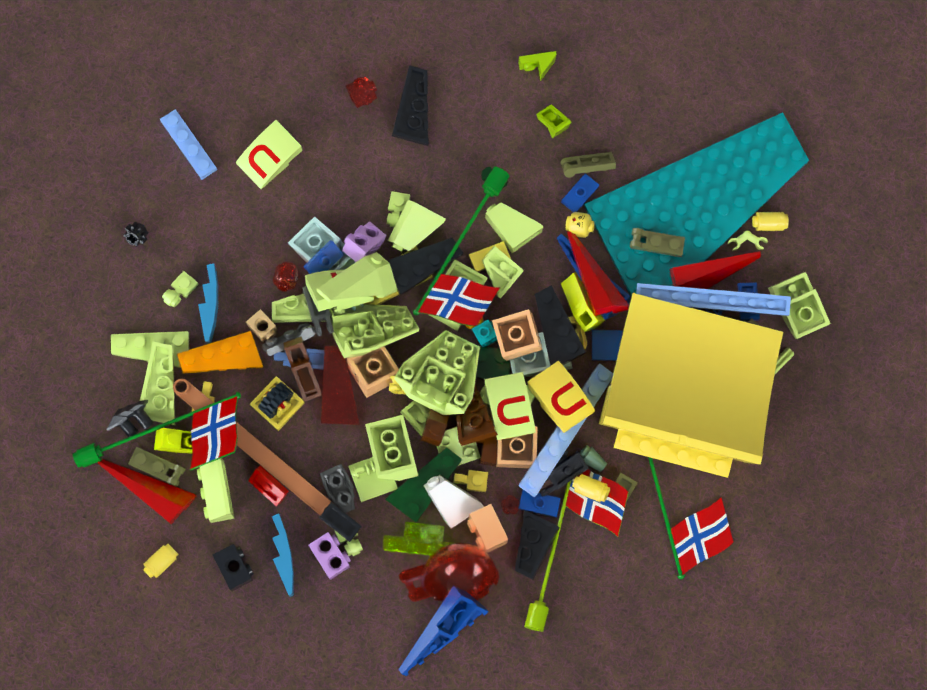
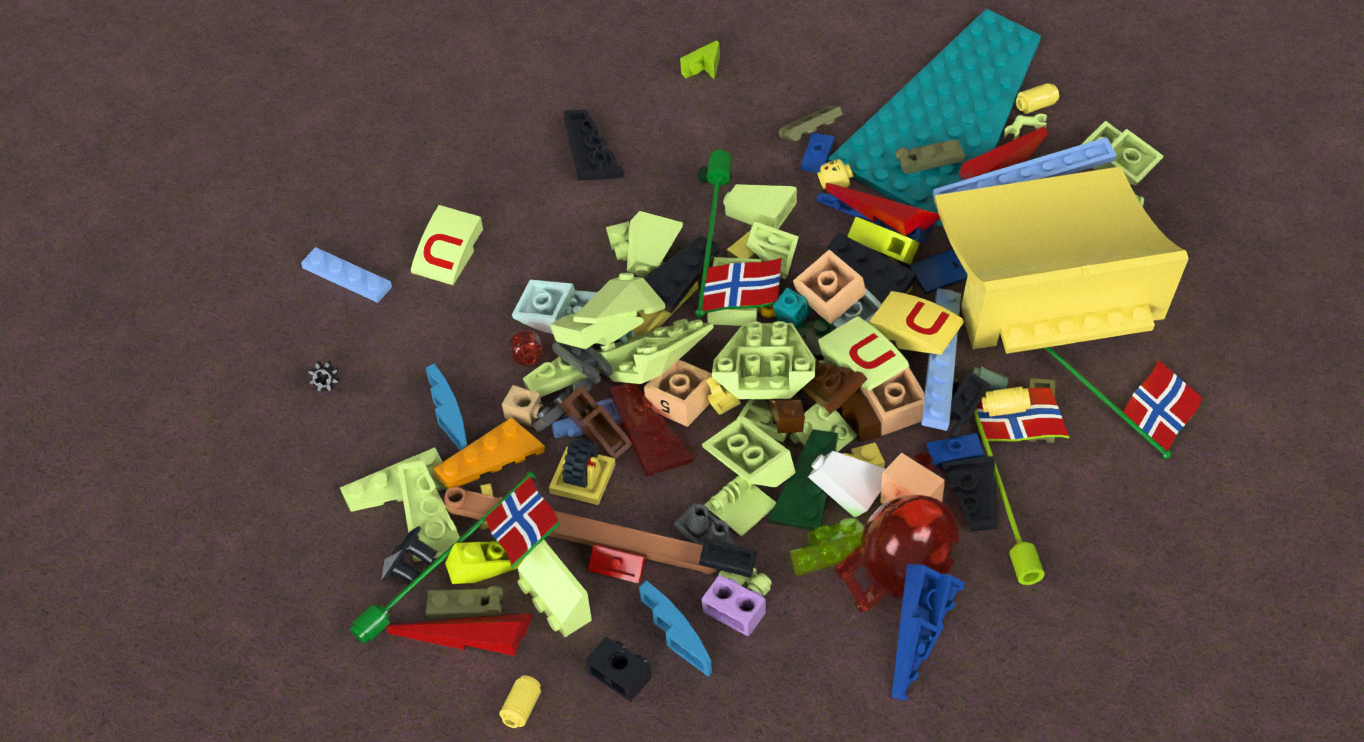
camera: 15 degrees left, 25 degrees down
(183, 286) = (403, 410): yellowish green plate -> none
(324, 258) = (565, 303): blue plate -> none
(362, 91) = (523, 151): clear red brick -> none
(363, 242) = (597, 274): lavender brick -> none
(553, 120) = (753, 98): lime slope -> none

